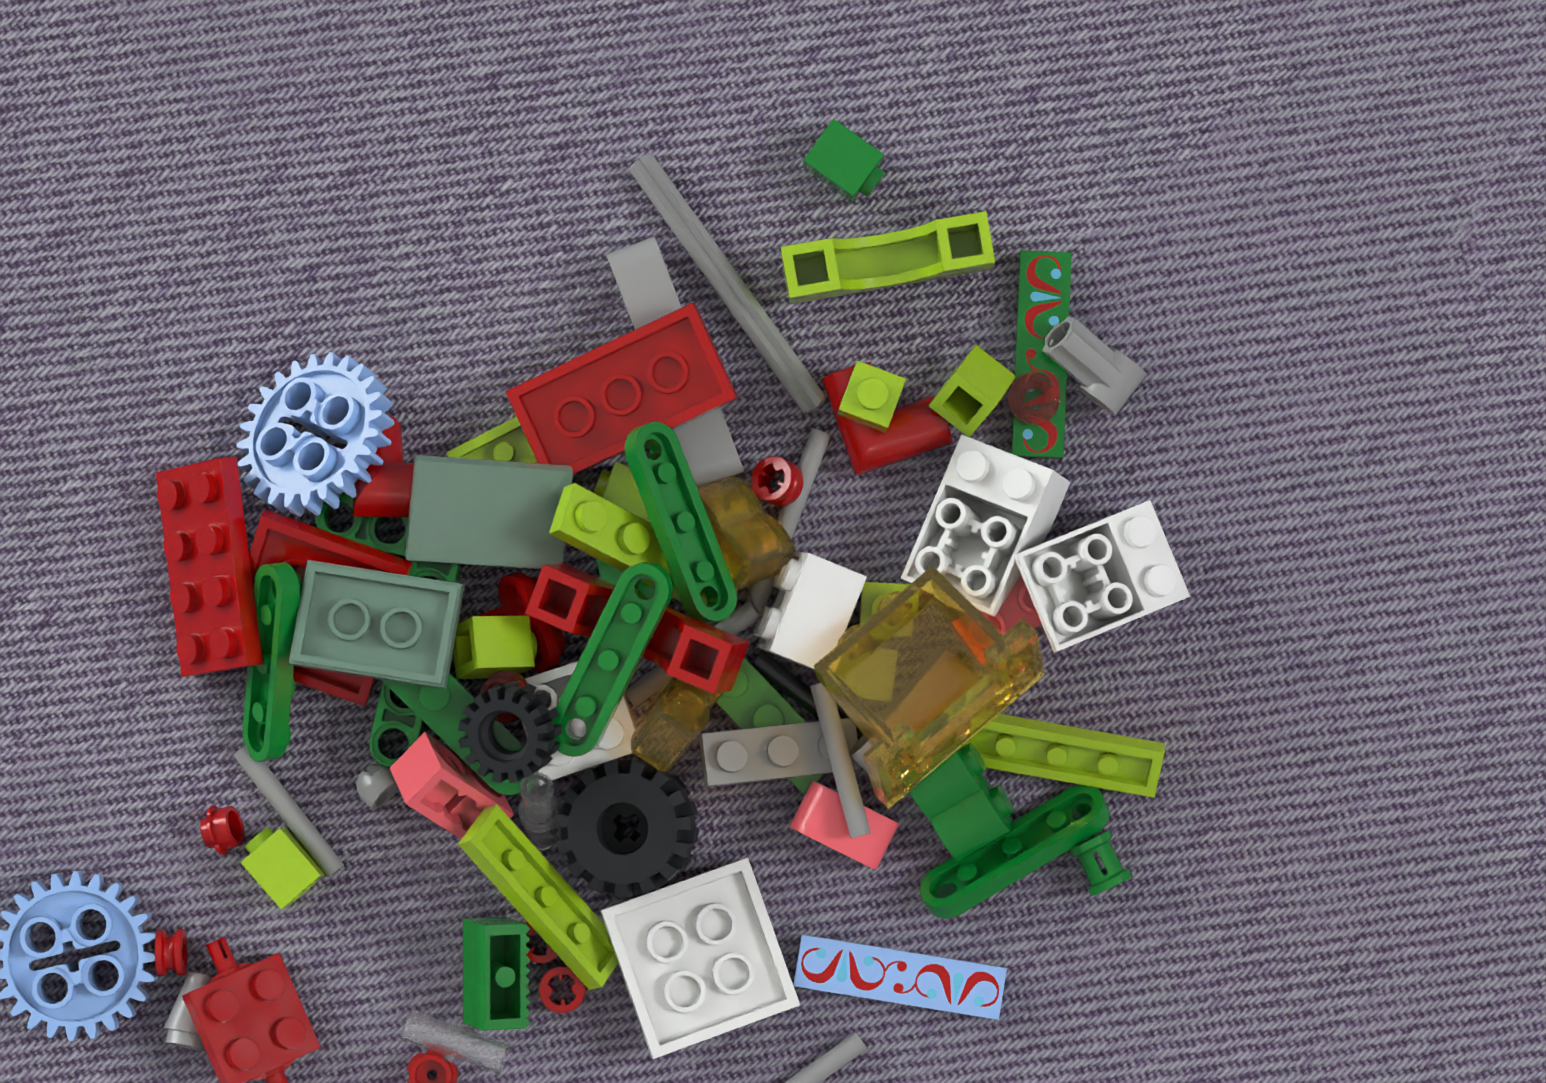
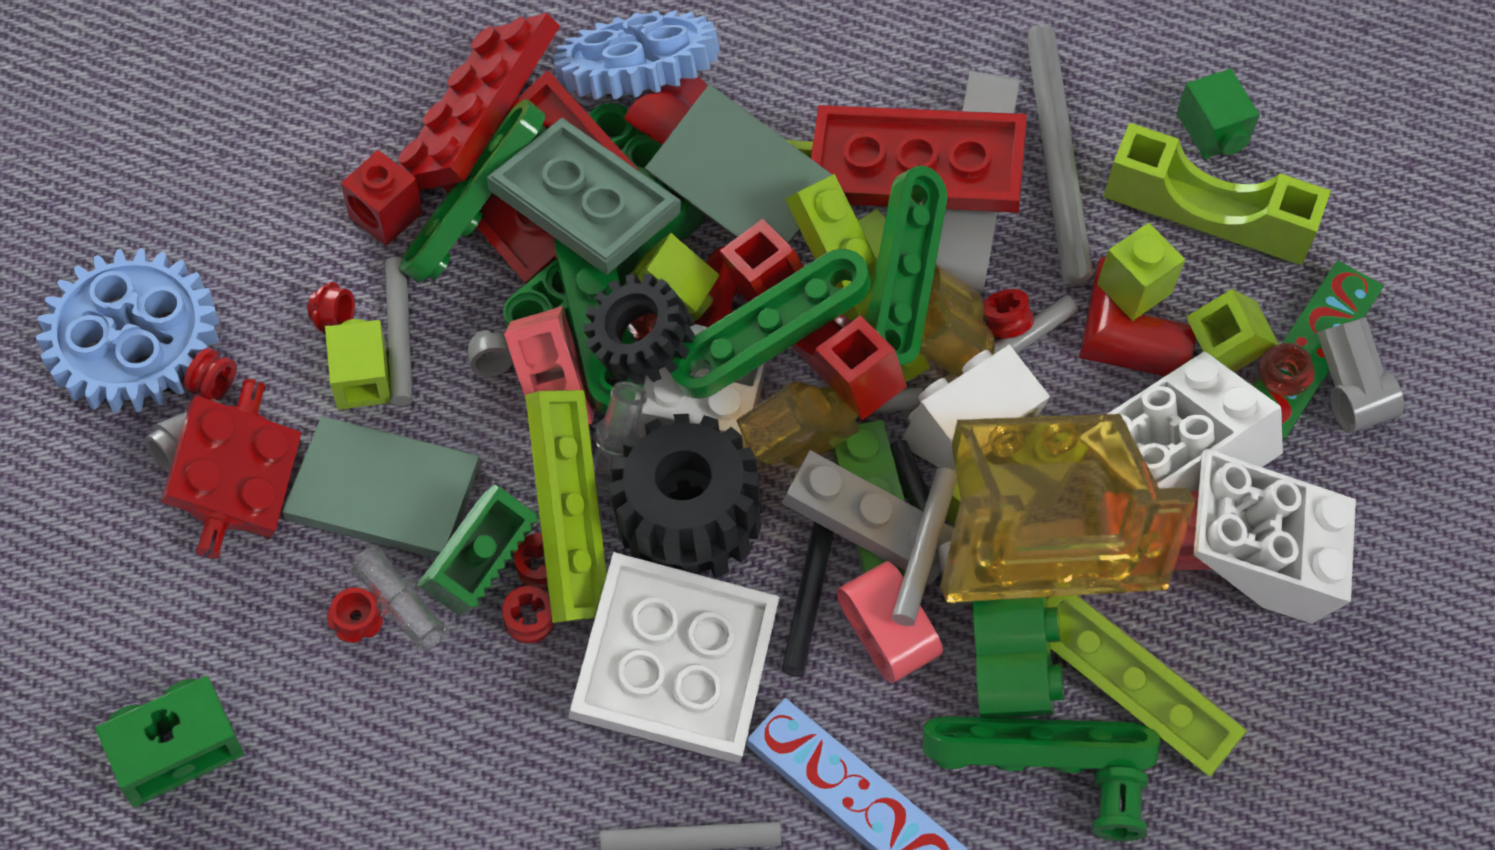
camera: 25 degrees right, 25 degrees down
(192, 705) = (382, 197): none -> red brick
(375, 956) = (382, 487): none -> sand green tile
(770, 844) = (807, 601): none -> black bar

